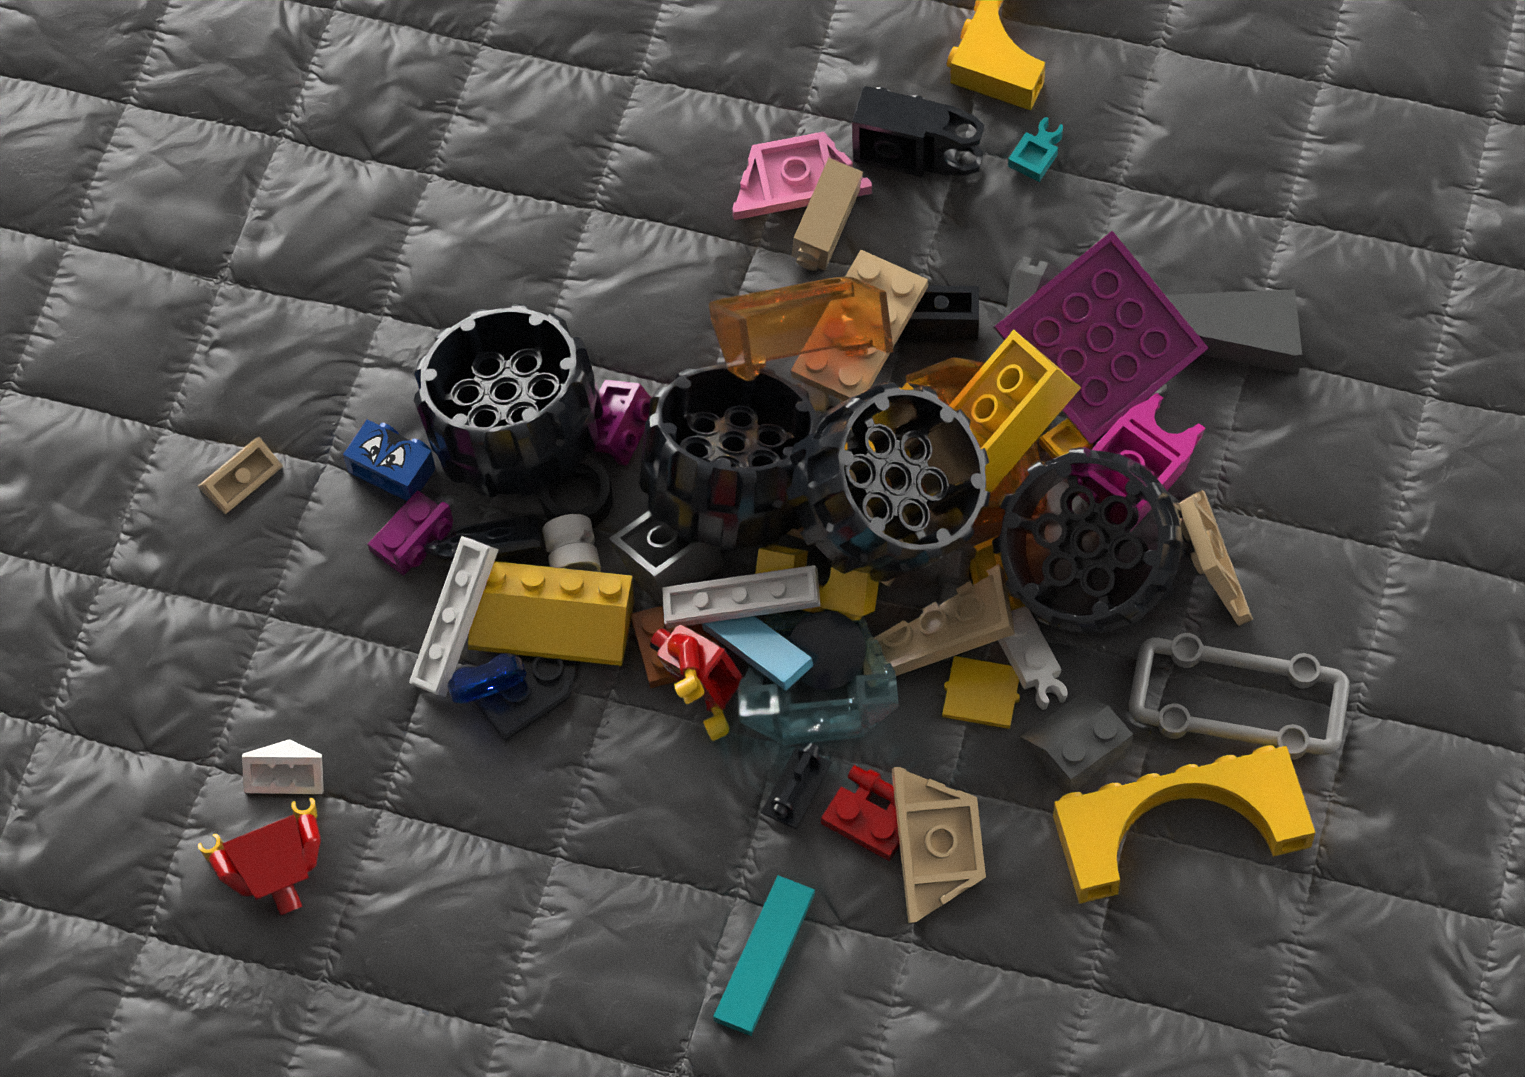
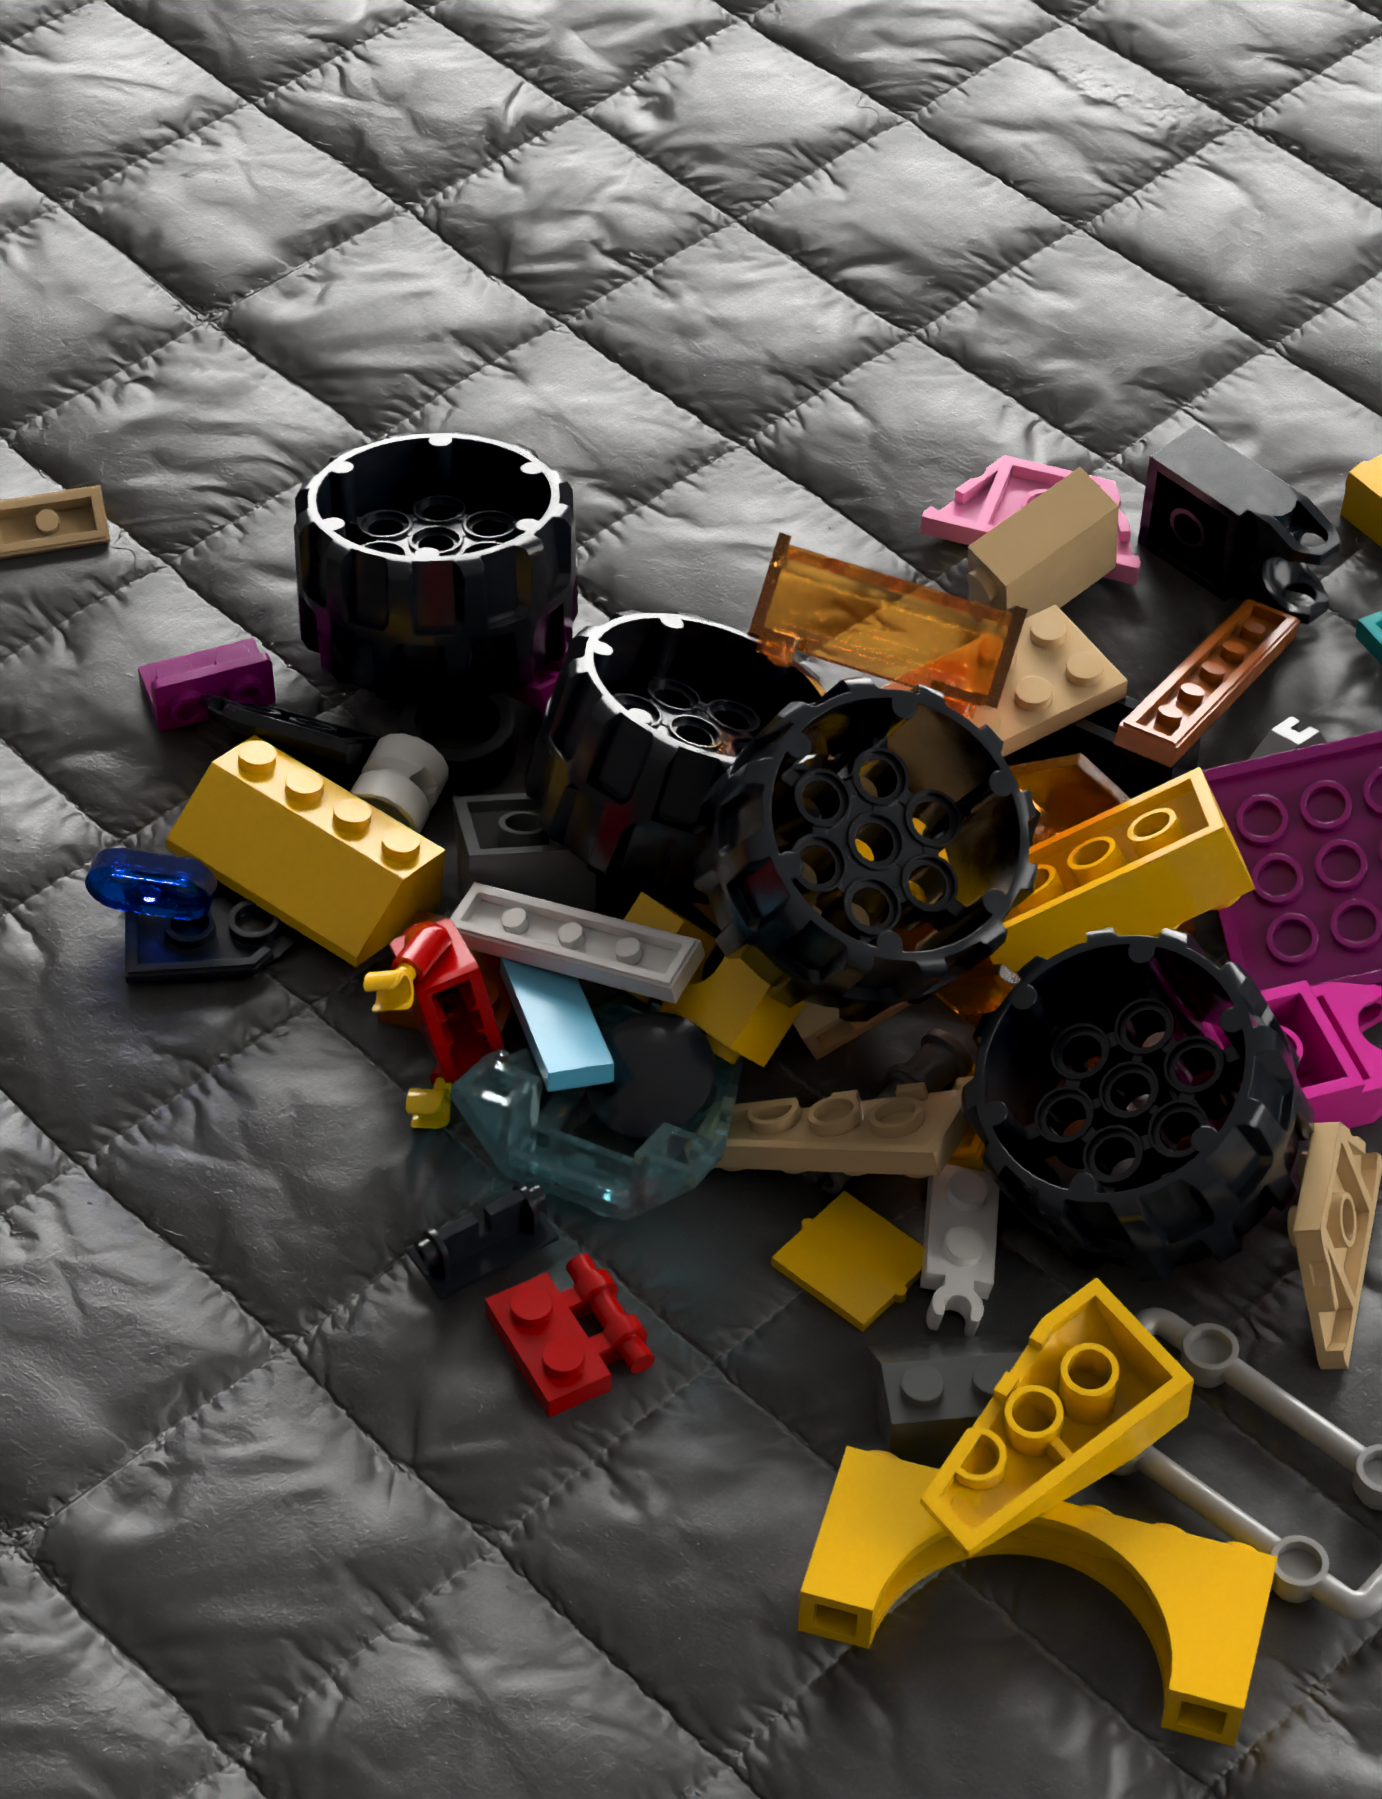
camera: 25 degrees right, 15 degrees down
(389, 460) = (243, 584): blue brick -> none
(453, 616) = (169, 778): white tile -> none
(764, 955) = (261, 1443): teal tile -> none
(937, 842) = (627, 1417): tan wing -> none
(961, 250) = (1207, 683): none -> dark orange tile
(1151, 726) = (1066, 1414): none -> yellow wedge

